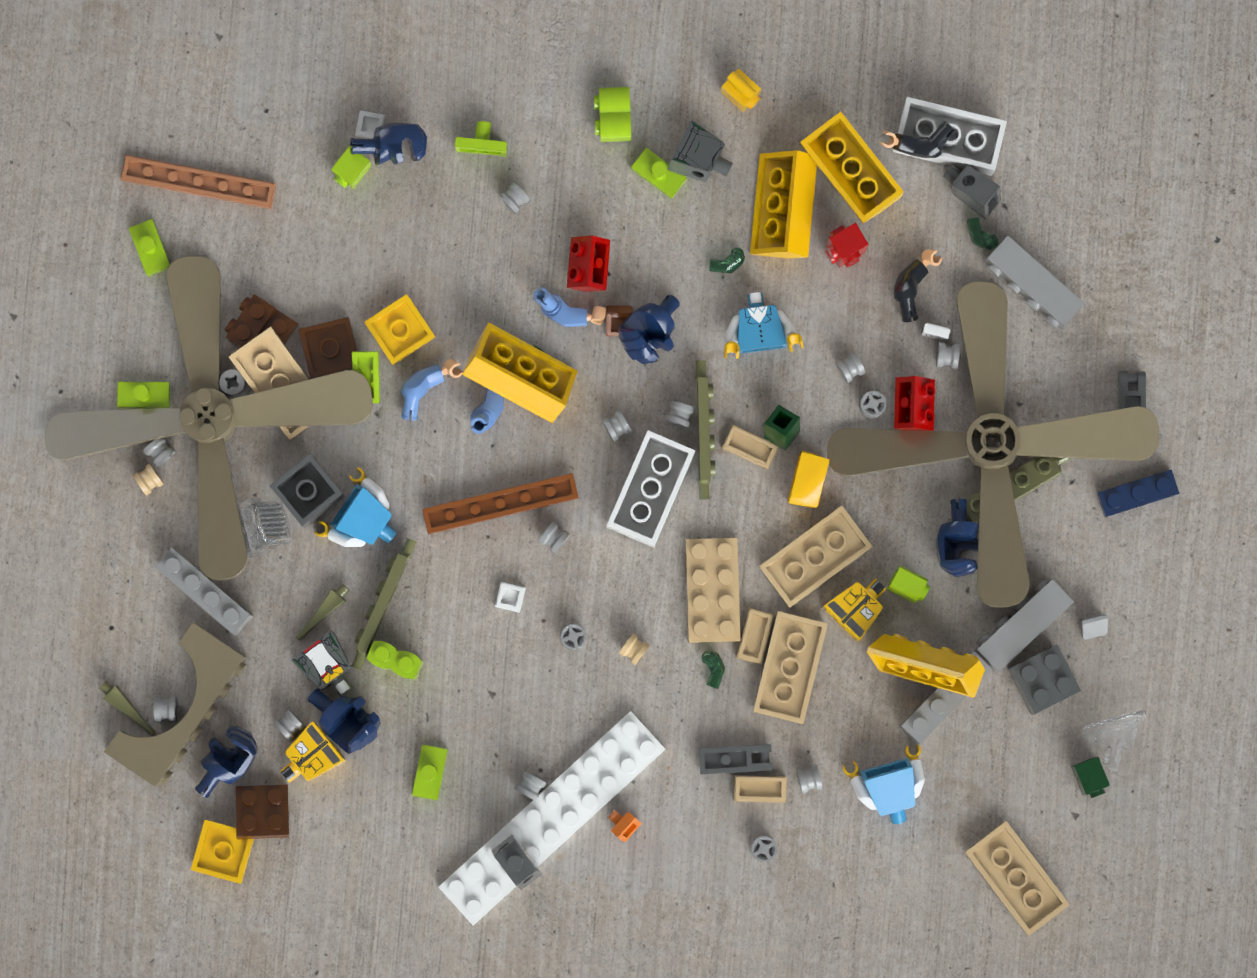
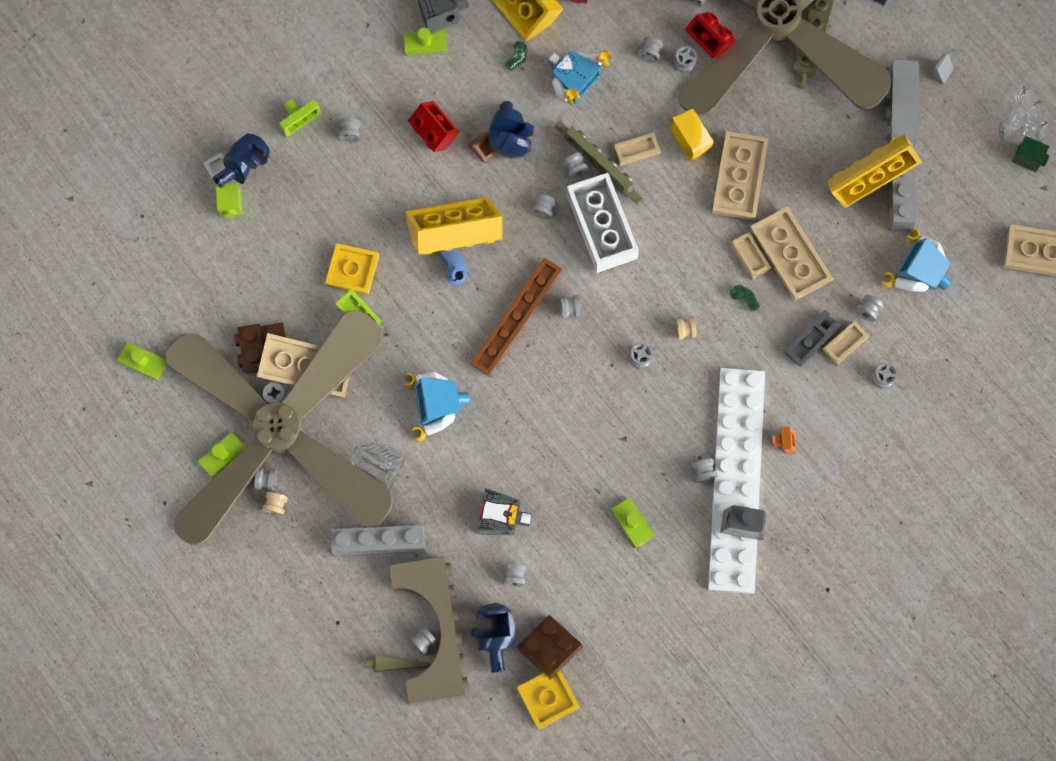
camera: 40 degrees left, 10 degrees down
(198, 182) = (137, 294): nougat tile -> none
(307, 491) = (386, 416): dark grey brick -> none
(311, 755) = (546, 580): yellow torso -> none
(328, 347) = (315, 318): reddish brown plate -> none
(332, 601) = (467, 473): olive piece -> none
(346, 720) = (549, 537): dark blue piece -> none
(385, 592) = (496, 435): olive plate -> none
(401, 662) = (537, 472): lime brick -> none
(420, 382) = (396, 288): medium blue arm -> none
(510, 597) = (577, 368): white tile -> none
(559, 311) = (447, 170): medium blue arm -> none
(614, 114) = (365, 30): lime brick -> none
(713, 590) = (698, 251): tan plate -> none
(782, 427) = (645, 116): dark green brick -> none
(856, 608) = (795, 183): yellow torso -> none
(908, 584) = (812, 138): lime brick -> none
(956, 538) = (813, 87): dark blue piece -> none
(1044, 679) = (947, 123): dark grey brick -> none

